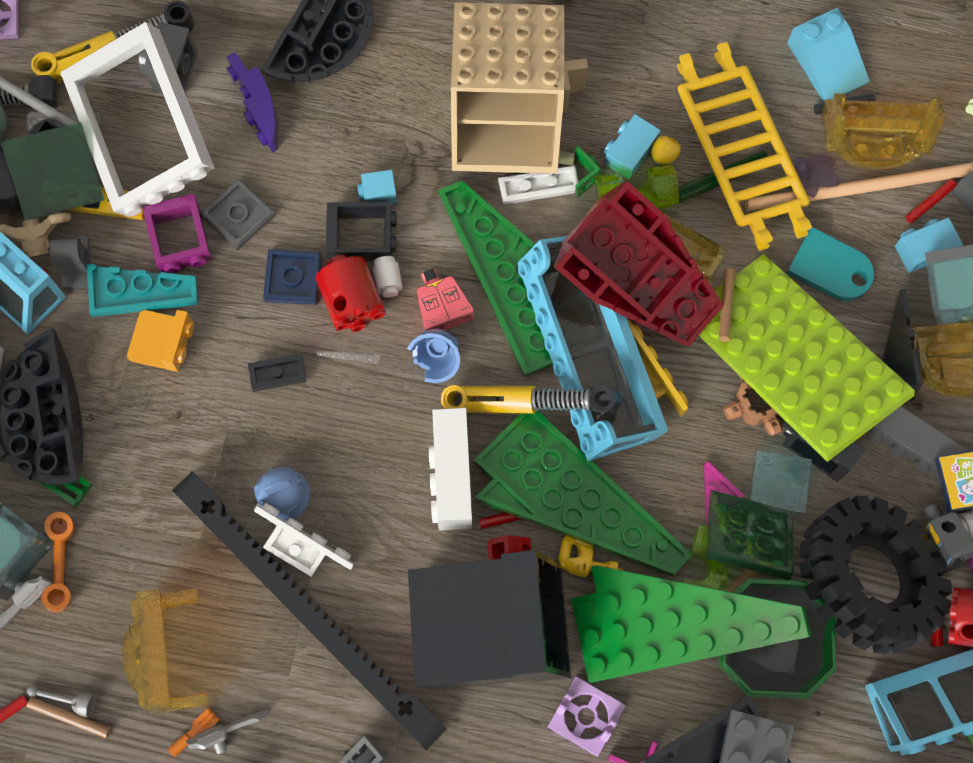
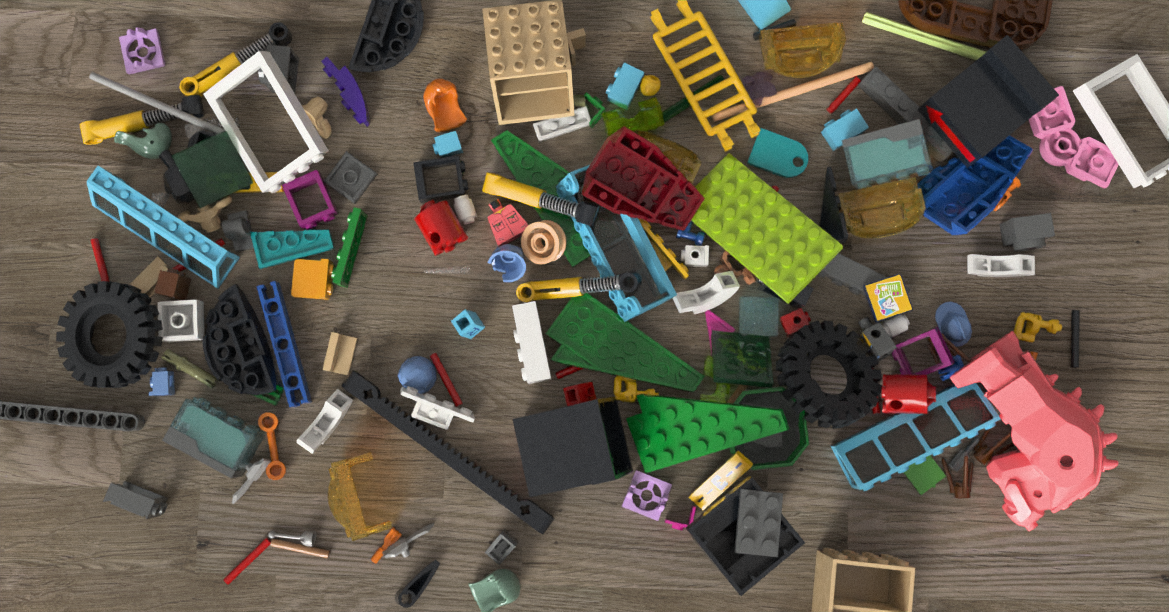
camera: 10 degrees left, 10 degrees up
(103, 442) = (279, 330): none -> blue piece
(142, 538) = (326, 421): none -> white arch
(178, 447) = (340, 353): none -> tan panel
(208, 118) = (315, 110): none -> tan piece
(217, 308) = (348, 253): none -> green plate
(277, 372) = (399, 290): black plate -> none
(292, 277) = (397, 218): dark blue tile -> none
(322, 506) = (446, 380): none -> red bar
(366, 430) = (468, 324): none -> medium azure brick
(380, 135) = (443, 105): none -> orange piece
(492, 272) = (499, 185): none -> piece
(505, 333) = (554, 238): none -> light nougat wheel
(693, 392) = (703, 256): none -> white brick
(699, 705) = (720, 480): none -> tile
(707, 362) = (698, 238): none -> blue piece
(712, 442) = (708, 296): none -> white arch
(727, 301) = (707, 195): medium nougat bar -> none
(829, 493) = (788, 324): none -> red brick

